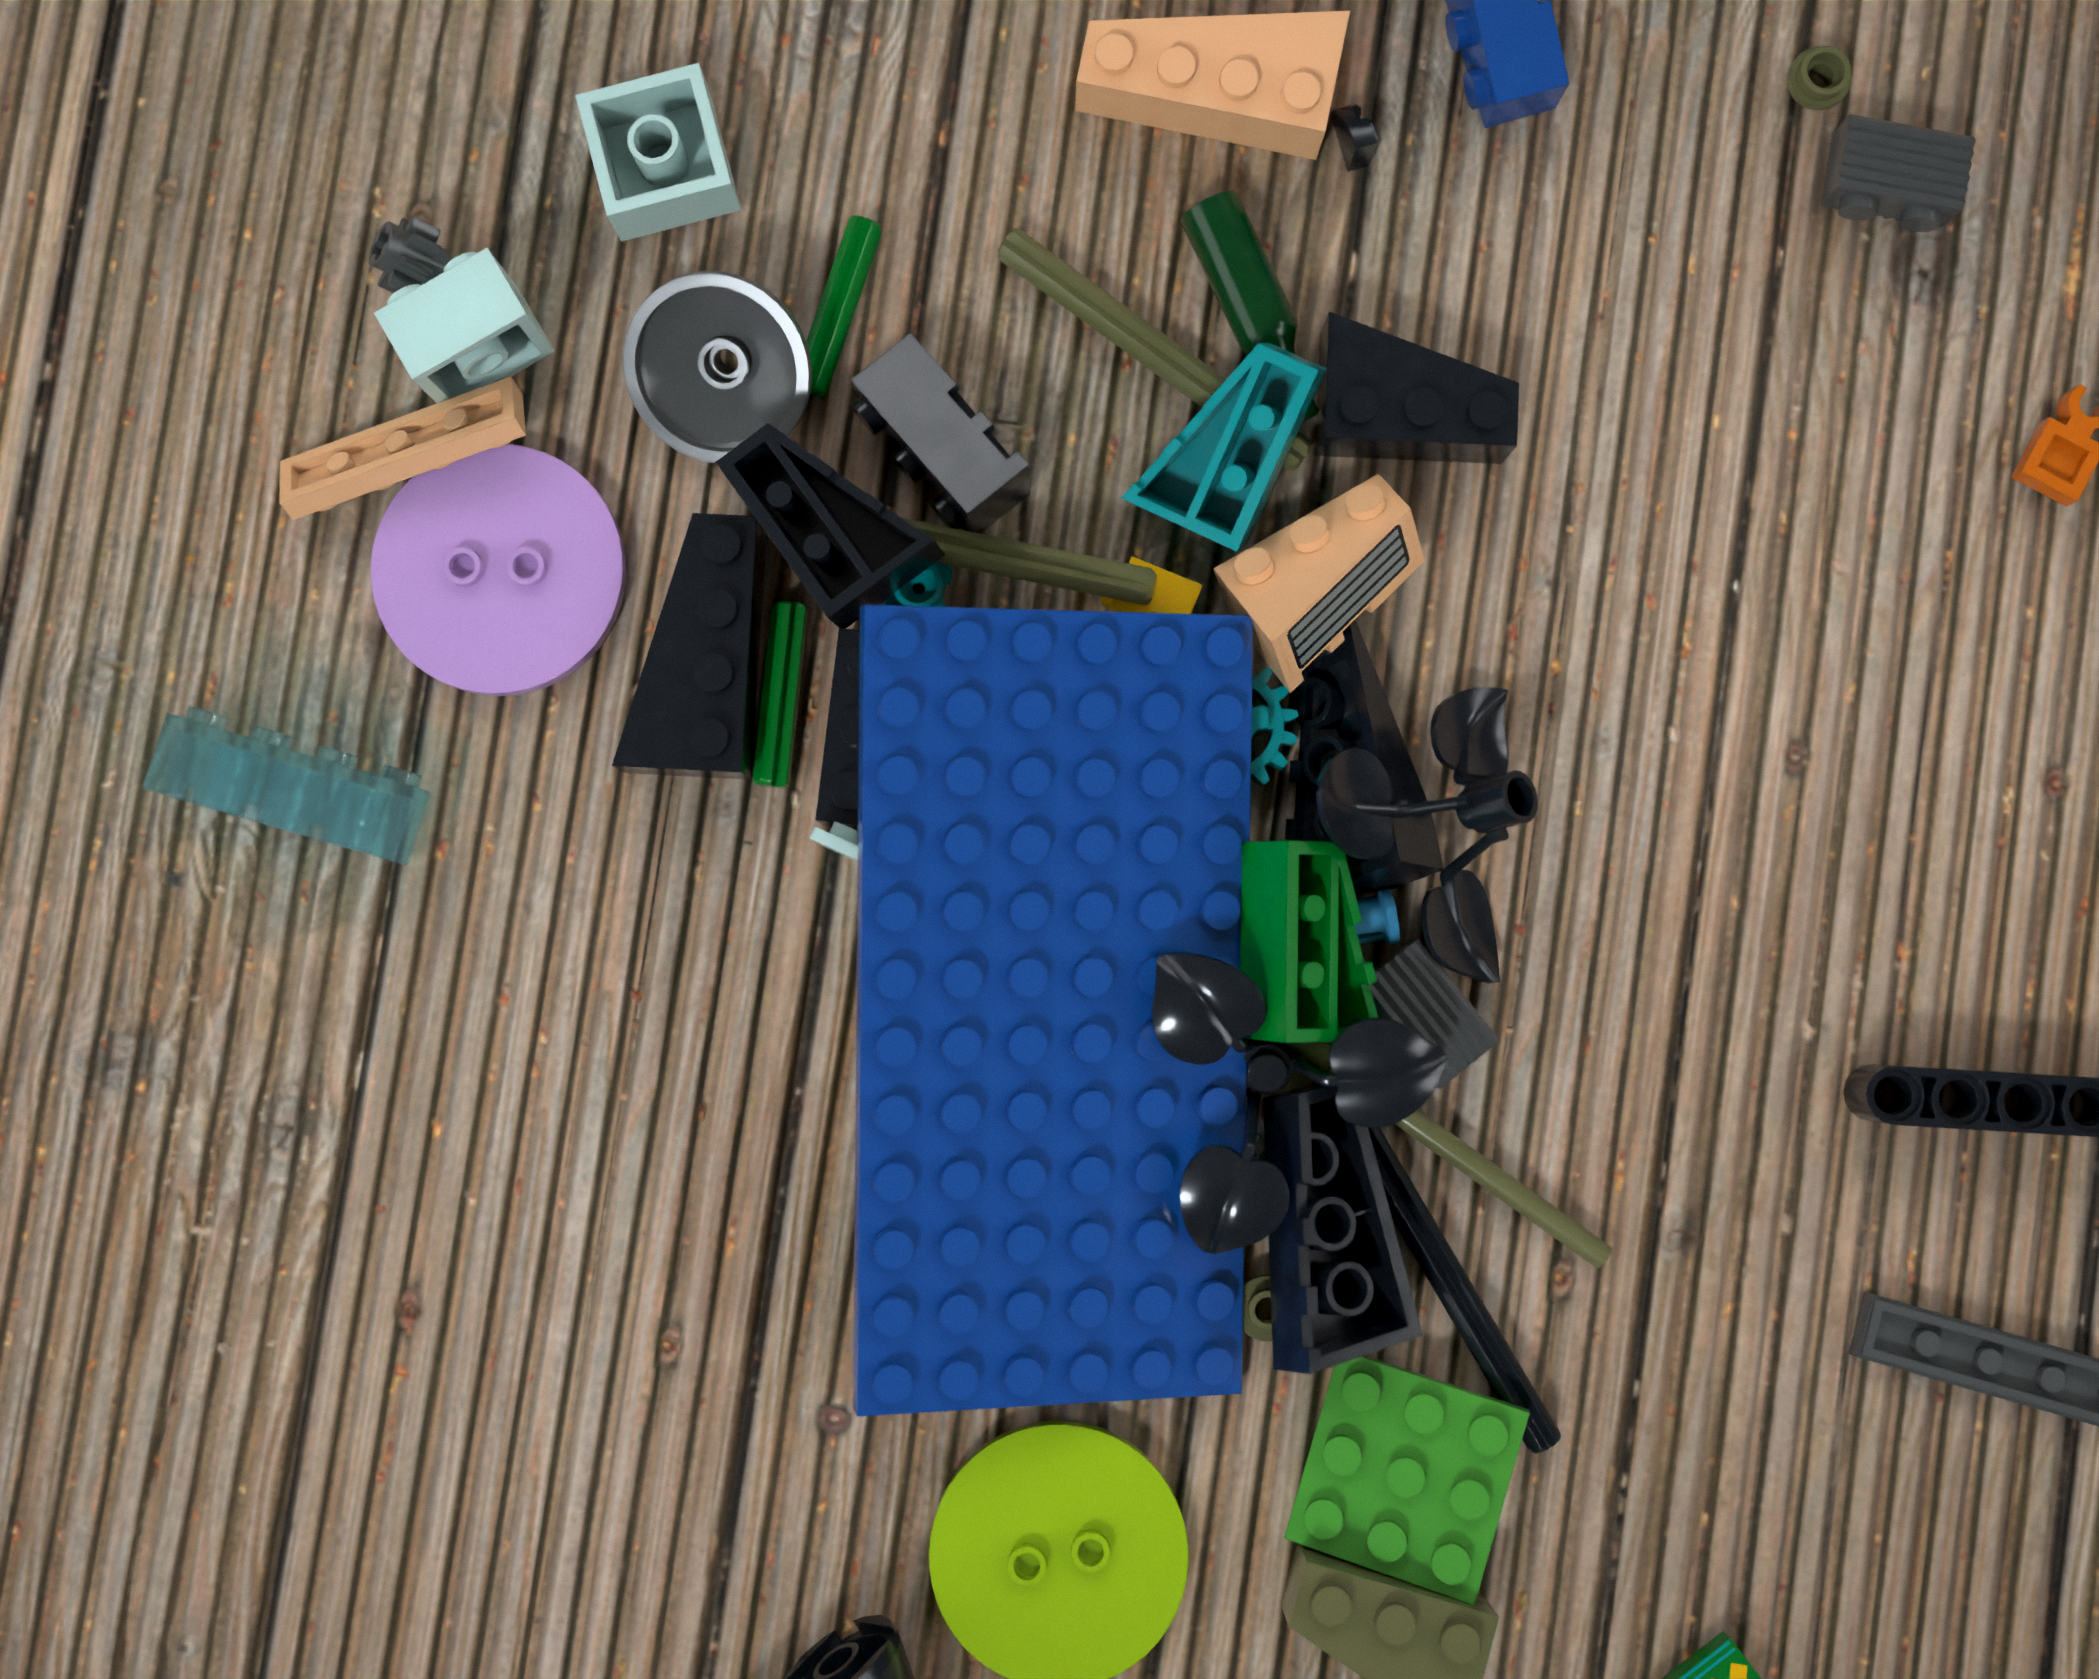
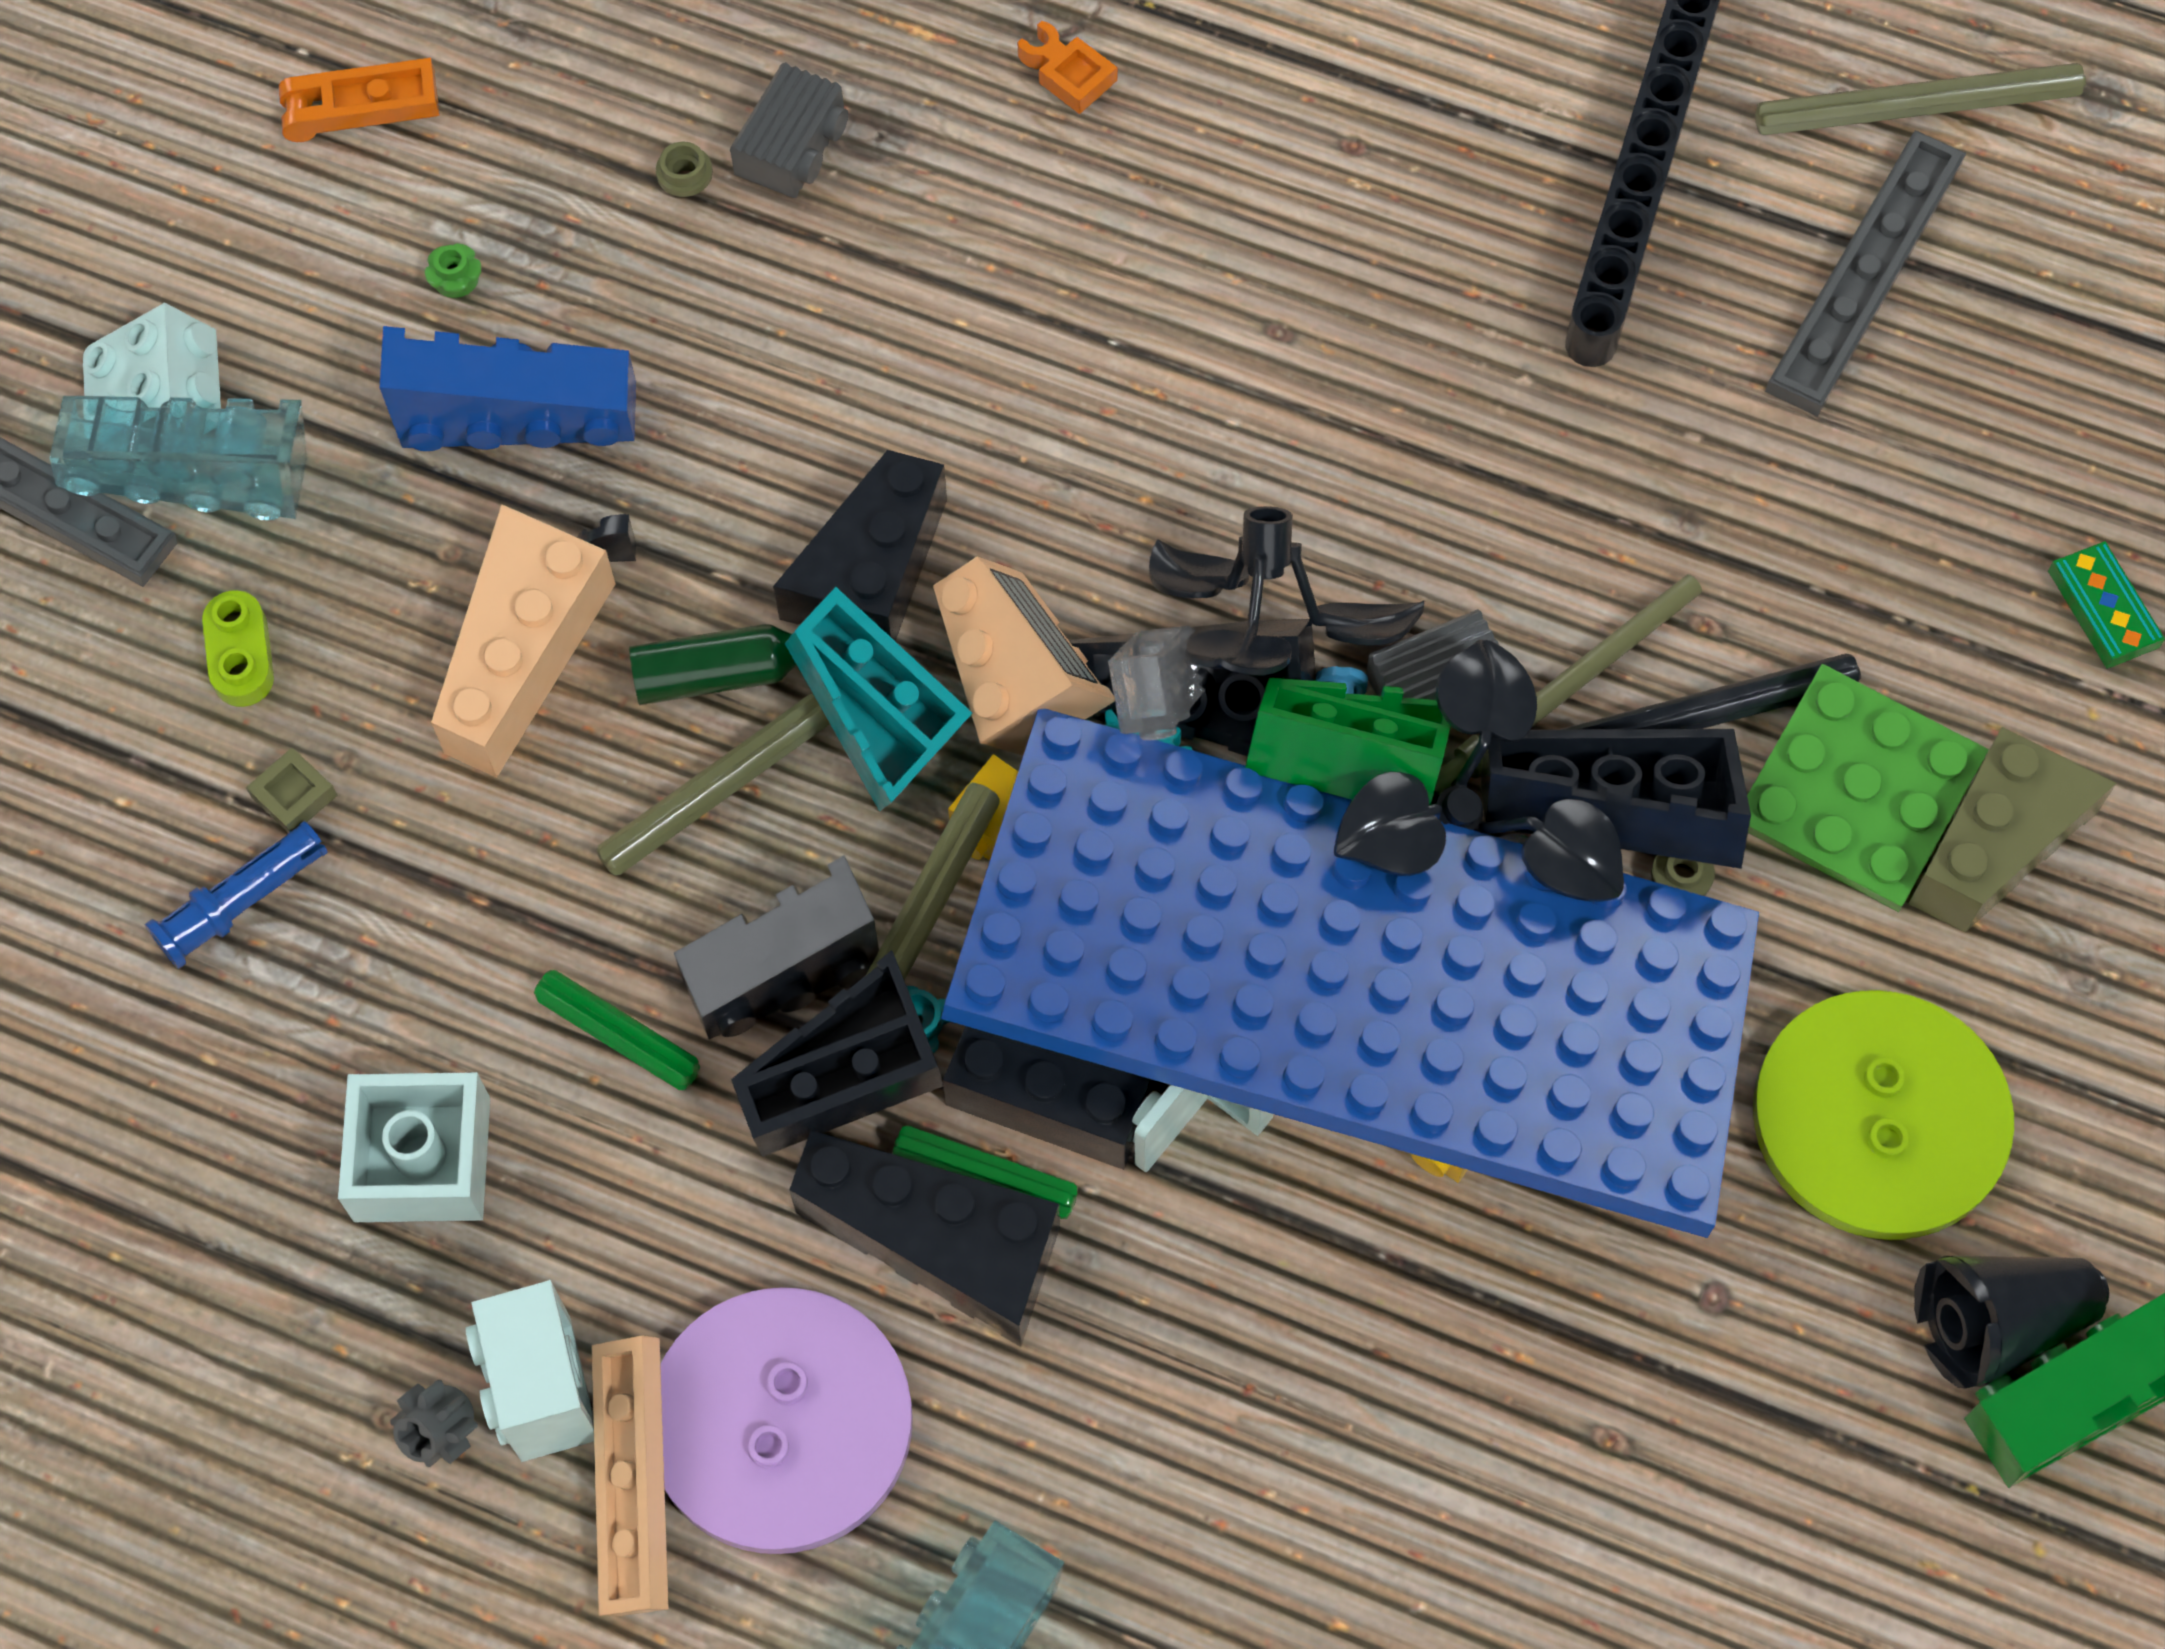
camera: 75 degrees left, 20 degrees down
(678, 370) = (688, 1132): dark grey dish -> none
(1308, 722) = (1154, 682): none -> clear brick

